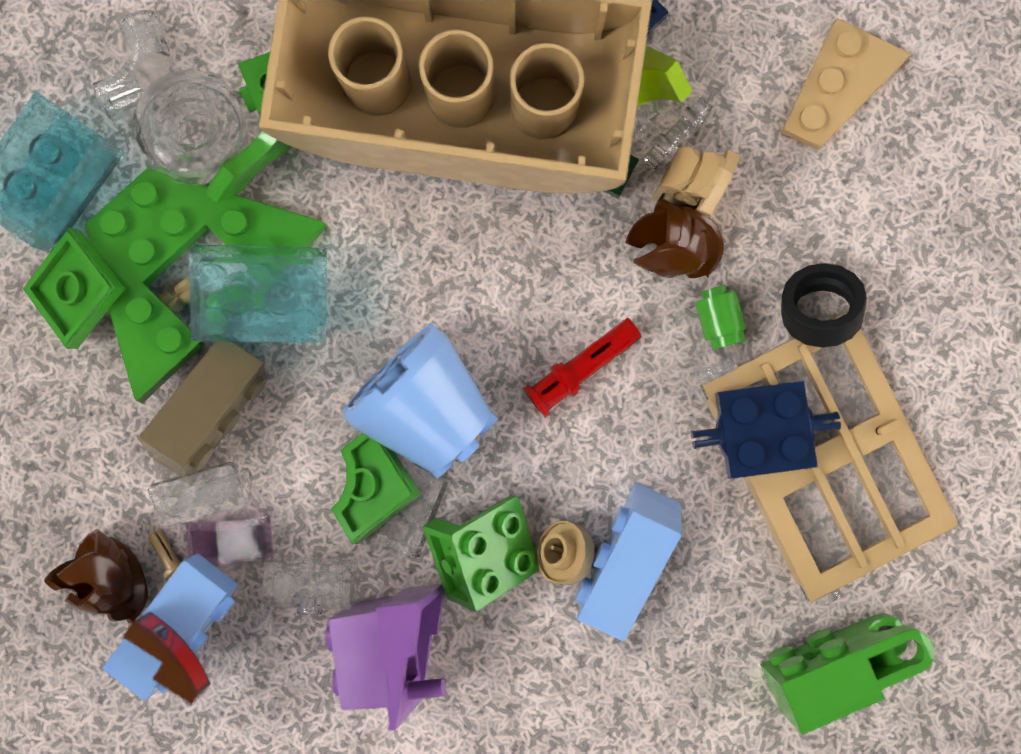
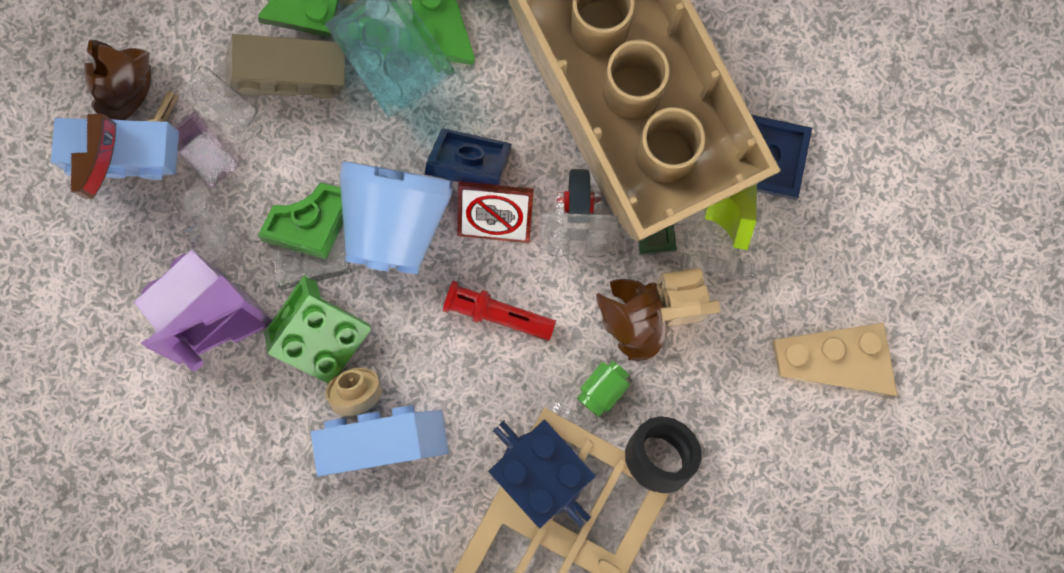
camera: 55 degrees right, 5 degrees down
(419, 293) = (468, 158): none -> dark blue plate
(487, 303) = (494, 212): none -> piece
(550, 229) = (578, 229): none -> clear plate

